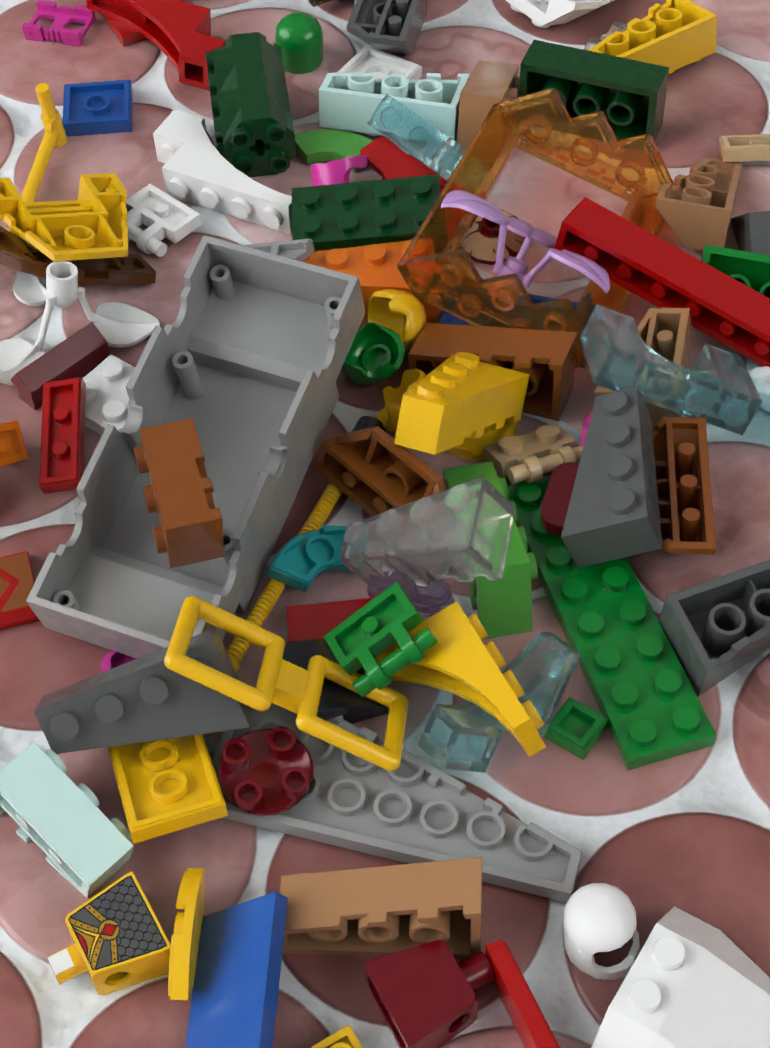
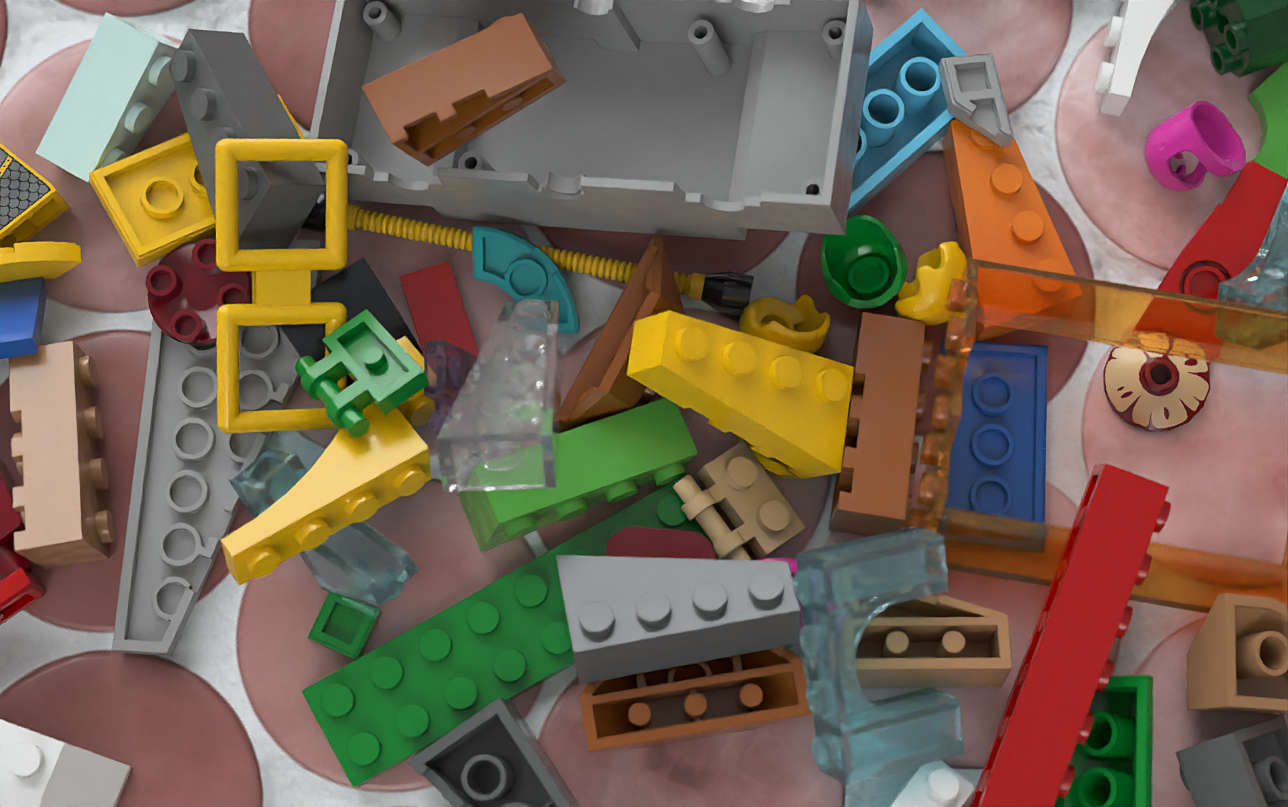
camera: 75 degrees right, 25 degrees up
(362, 211) = (1108, 194): dark green brick -> none
(485, 209) = (1065, 344): lavender plant -> none
(597, 921) = (73, 685): white helmet -> none

